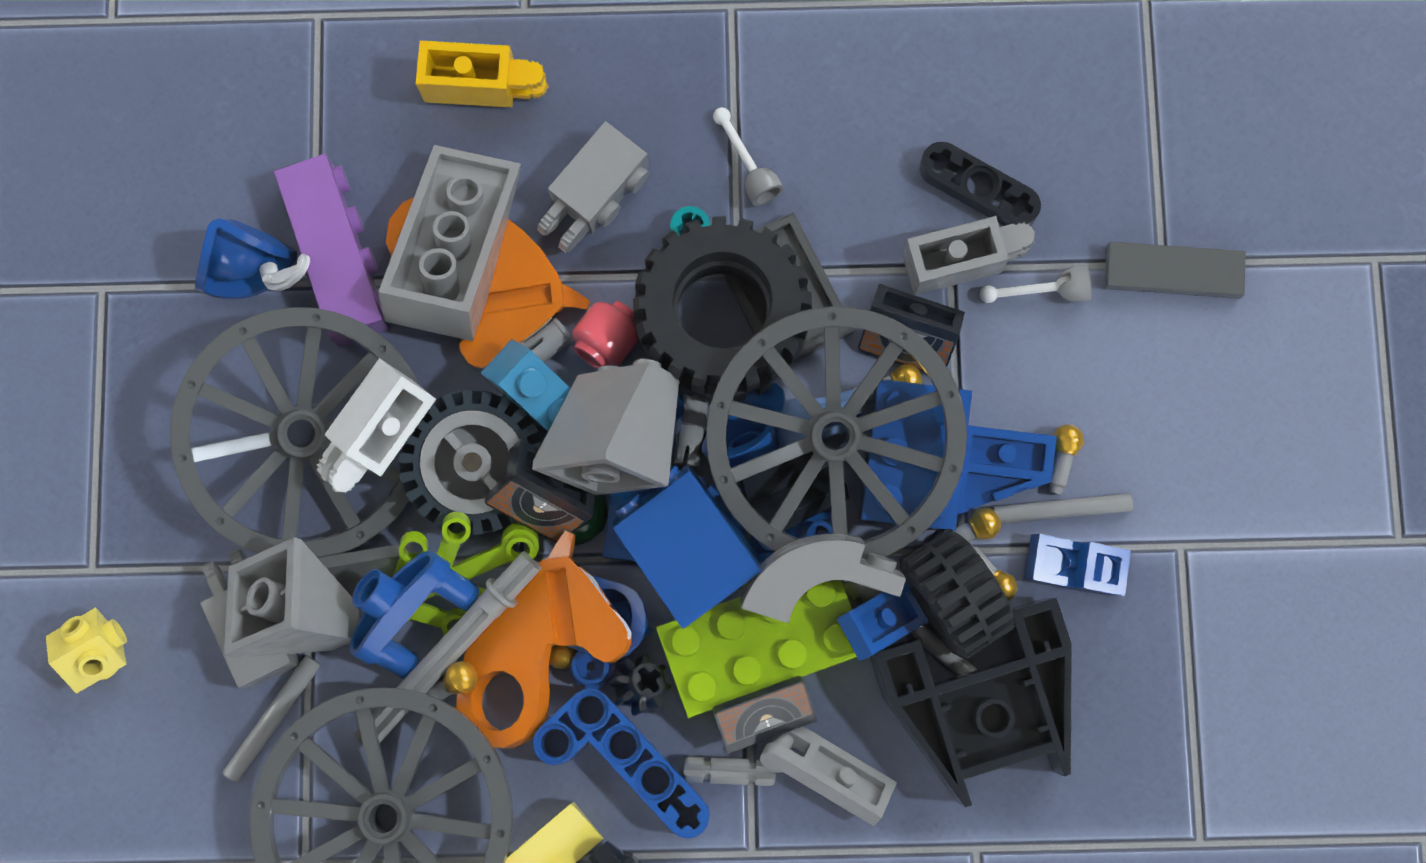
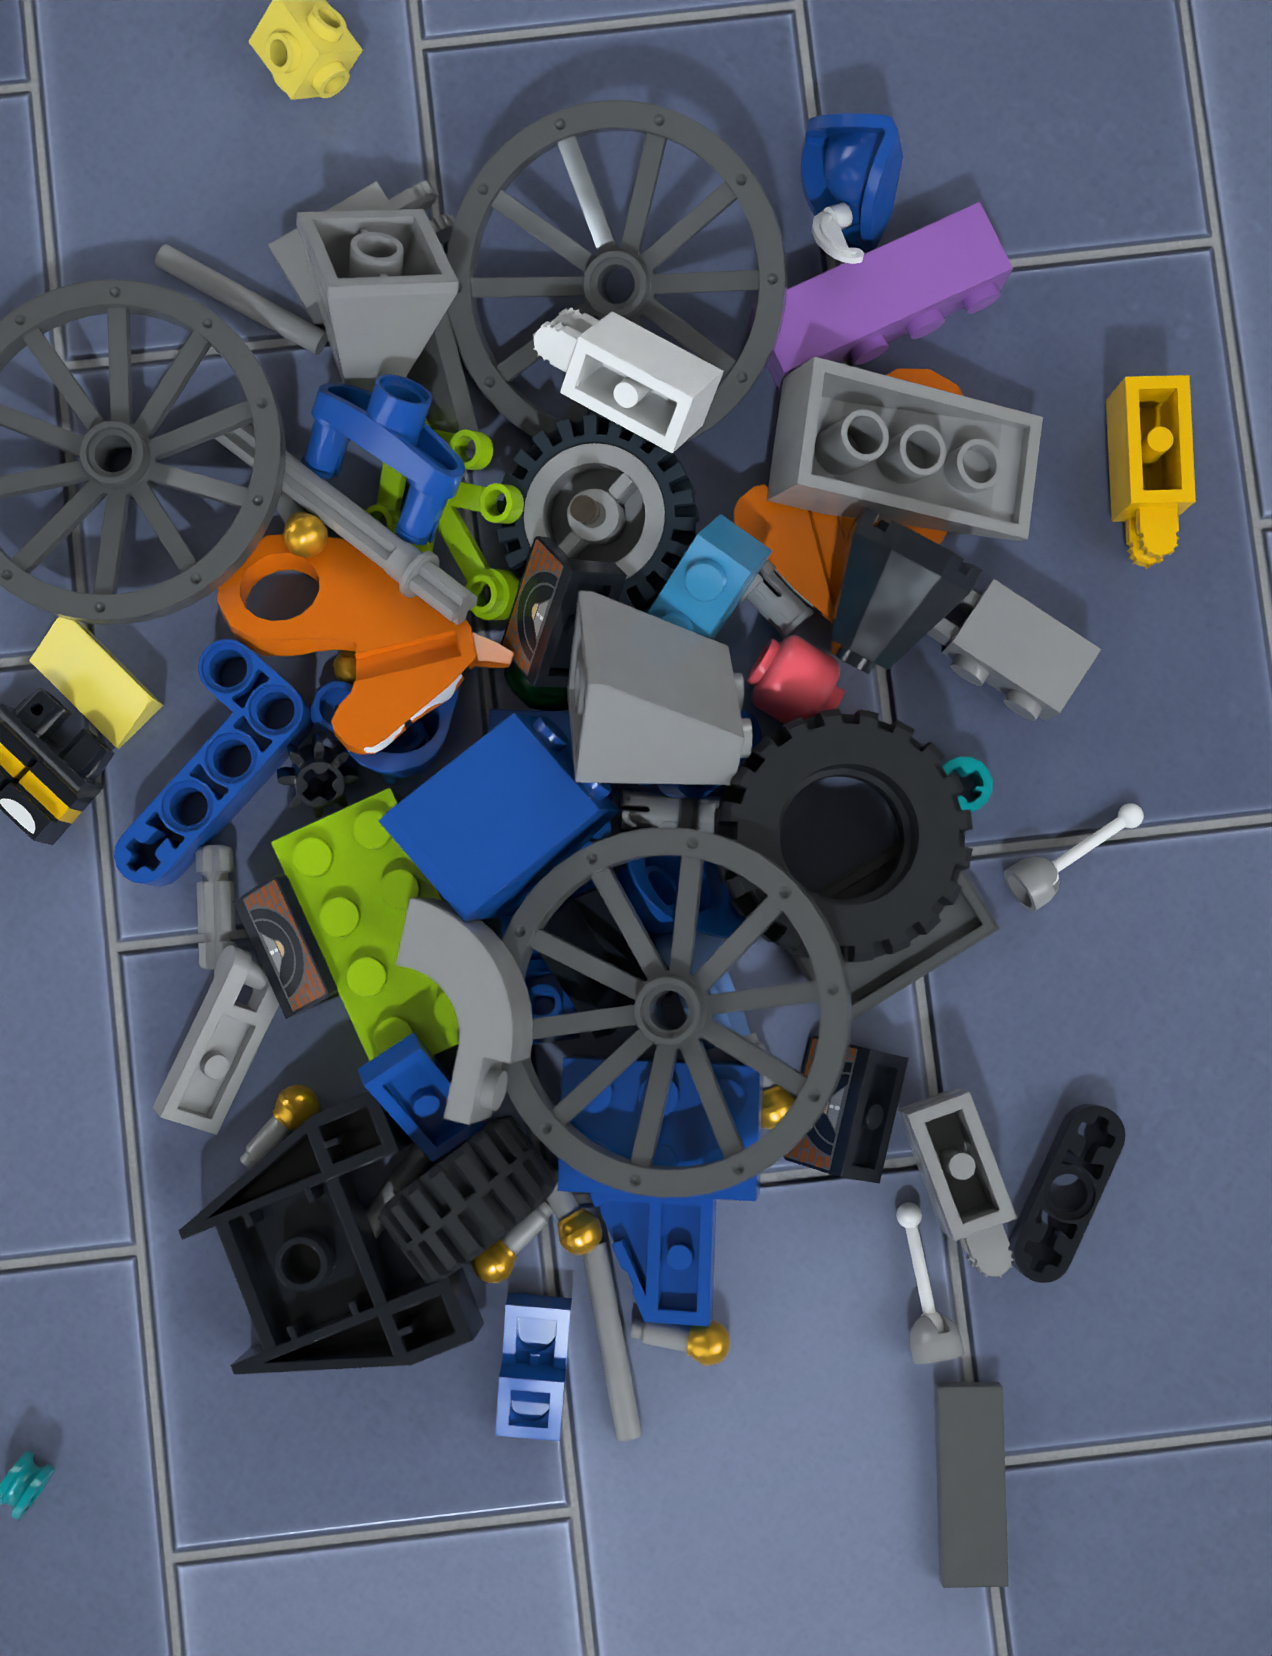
camera: 80 degrees right, 5 degrees up
(550, 257) = (893, 591): none -> black cone
(883, 724) = (291, 1110): none -> piece

